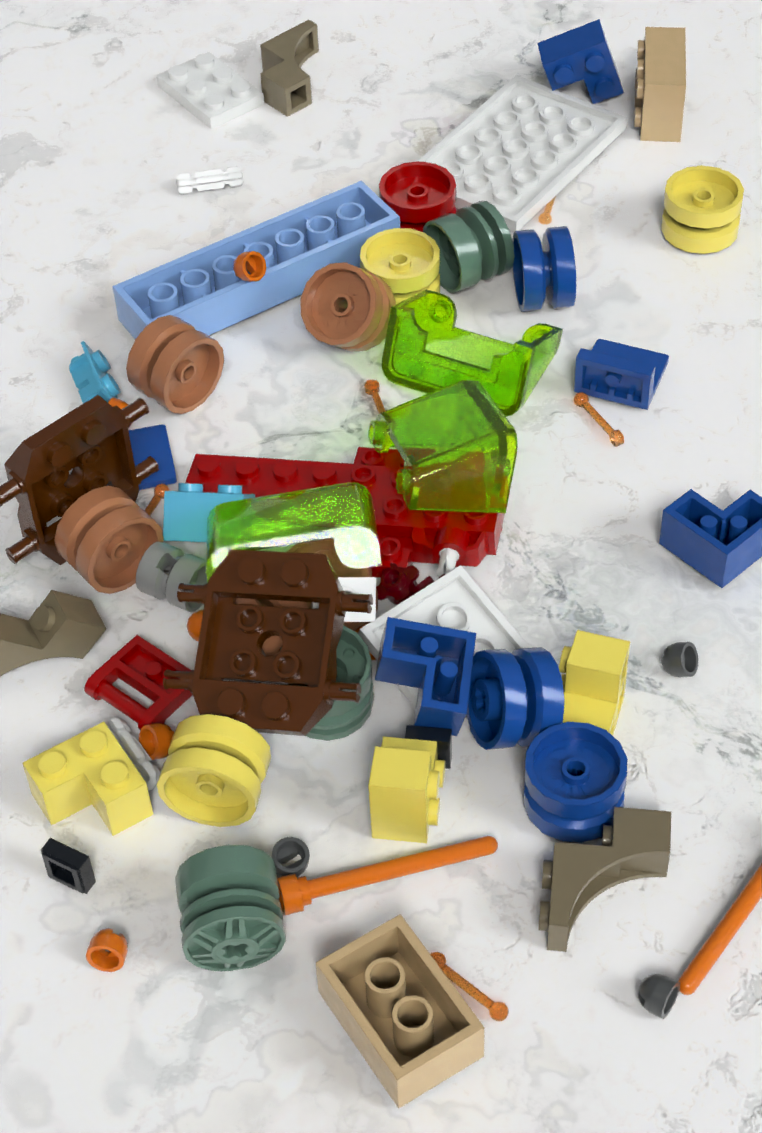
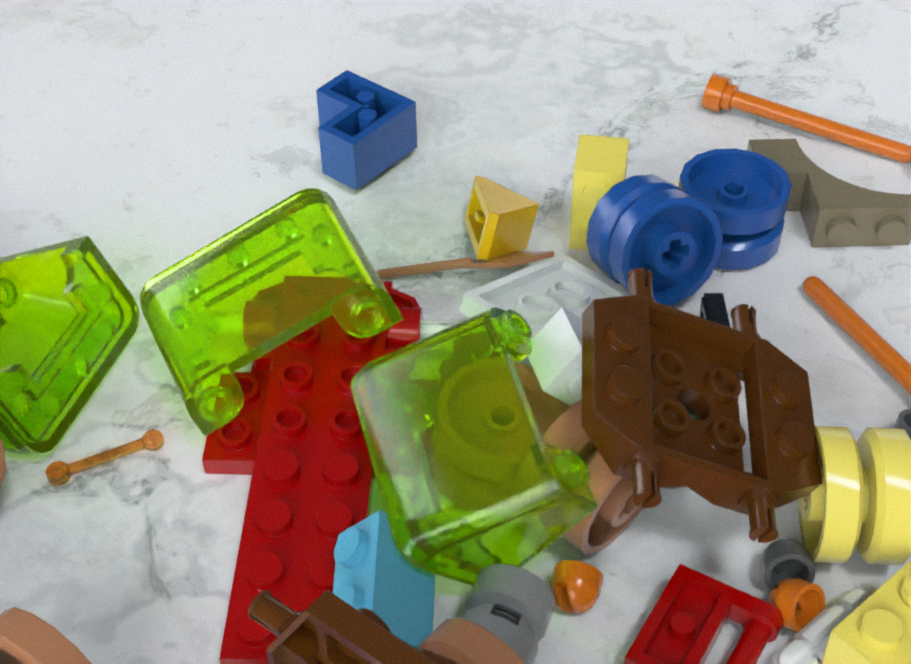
camera: 100 degrees left, 5 degrees down
(405, 789) = (811, 318): light yellow brick -> none
(435, 662) = (681, 275): blue brick -> none
(534, 617) = (505, 261): none -> nougat piece
(581, 610) = (498, 219): none -> yellow slope
(616, 437) = (182, 229): clear orange hinge -> none
(619, 373) = (72, 215): blue bracket -> none
(680, 659) = (528, 162): dark grey hinge -> none

